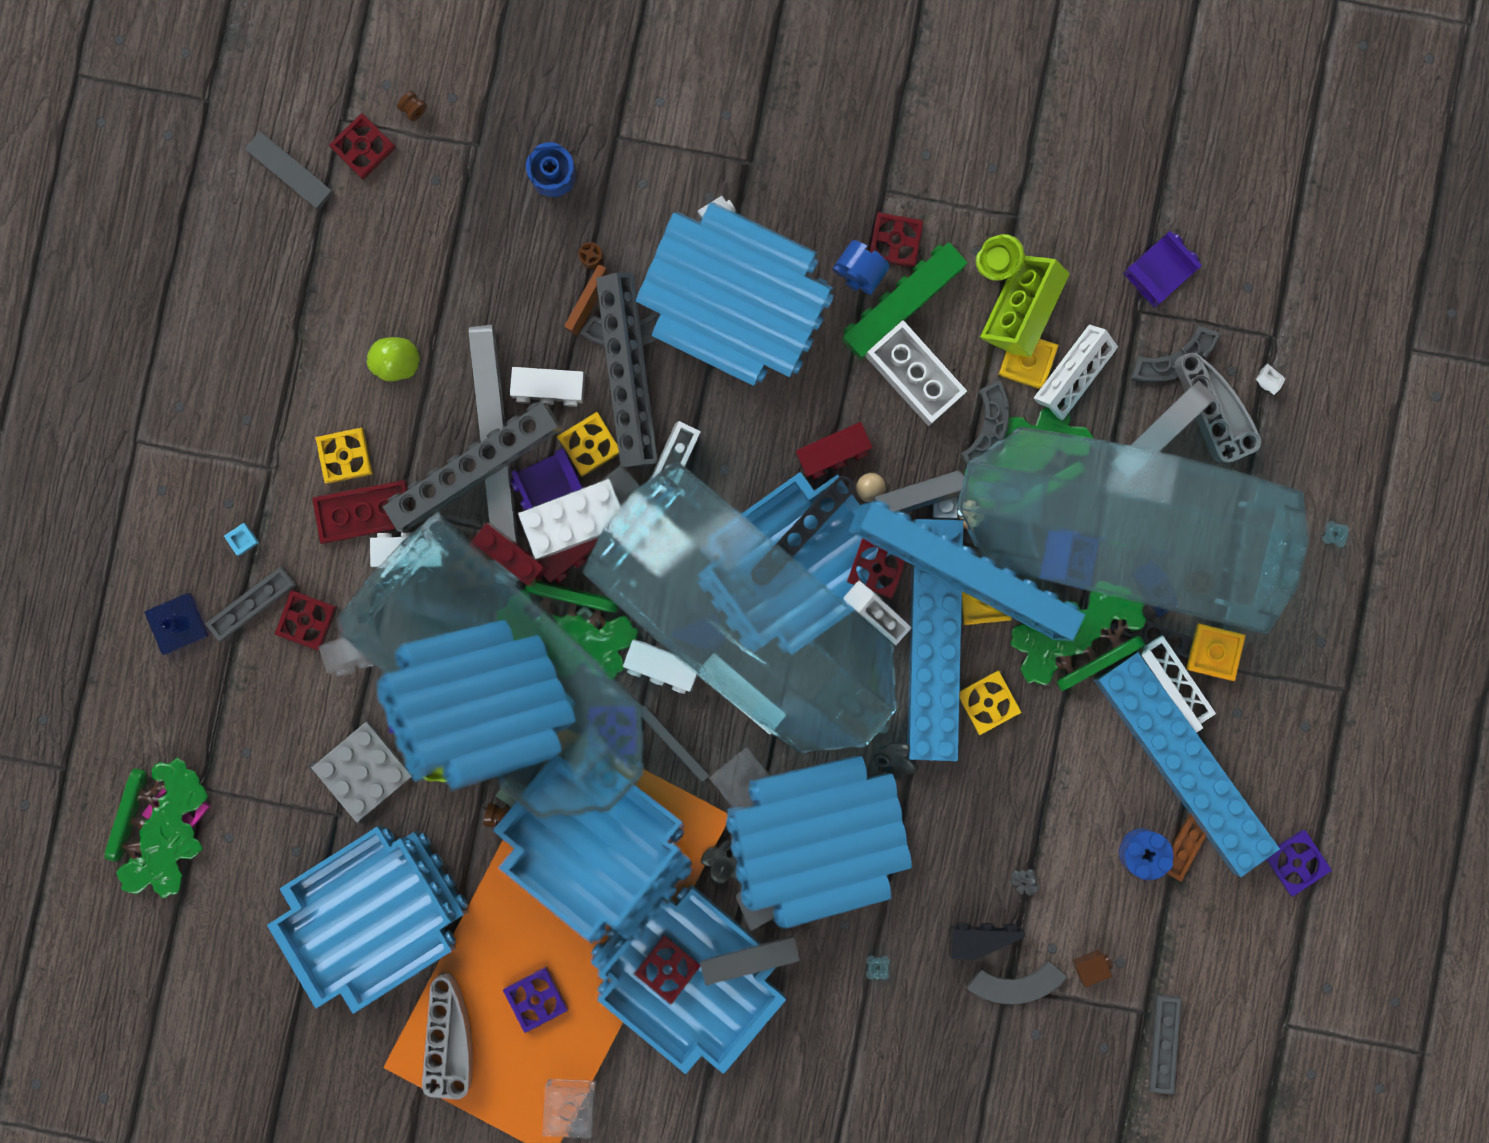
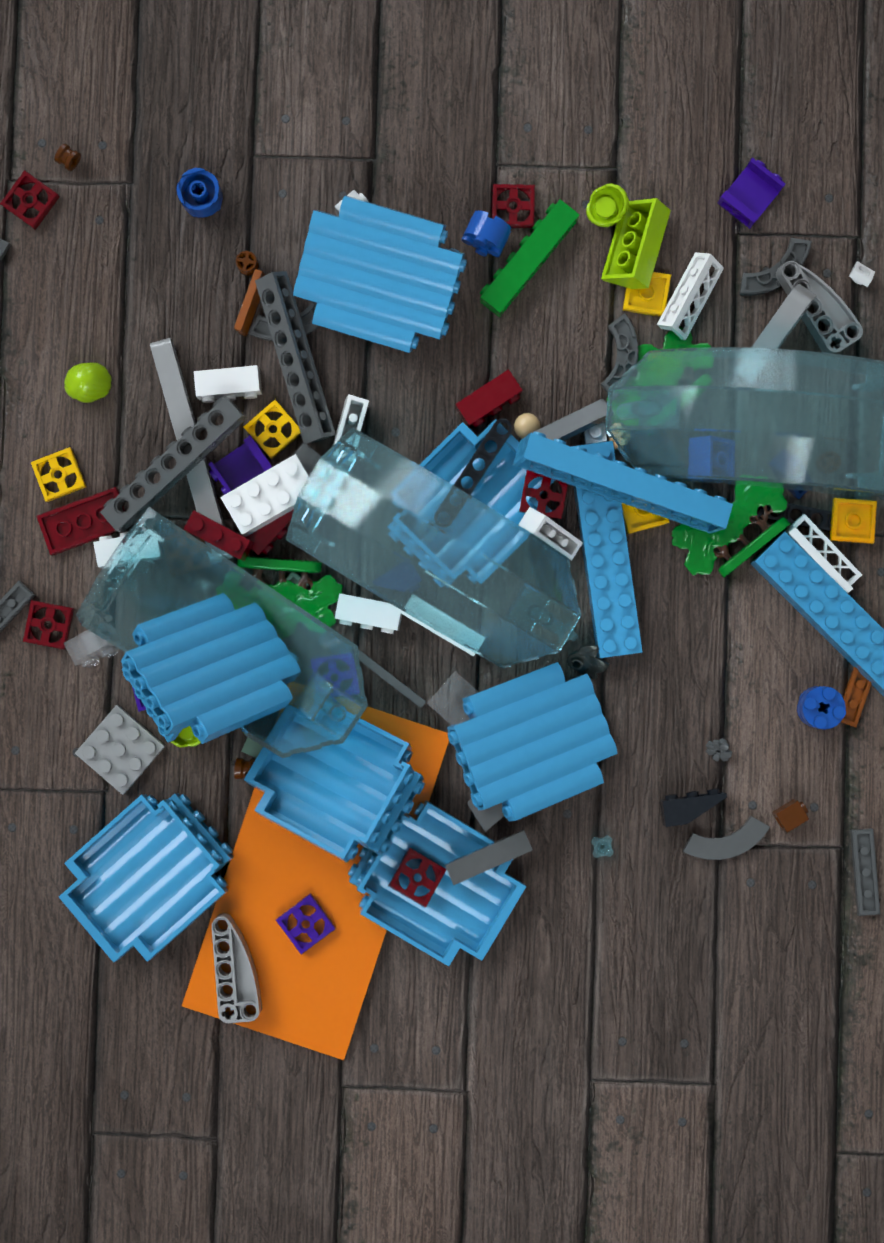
camera: 10 degrees left, 0 degrees up
(569, 1108) = (351, 1013): clear brick -> none
(721, 864) = (450, 779): pearl dark grey plate -> none
(915, 373) = (549, 319): white brick -> none
(996, 698) = (666, 605): yellow piece -> none

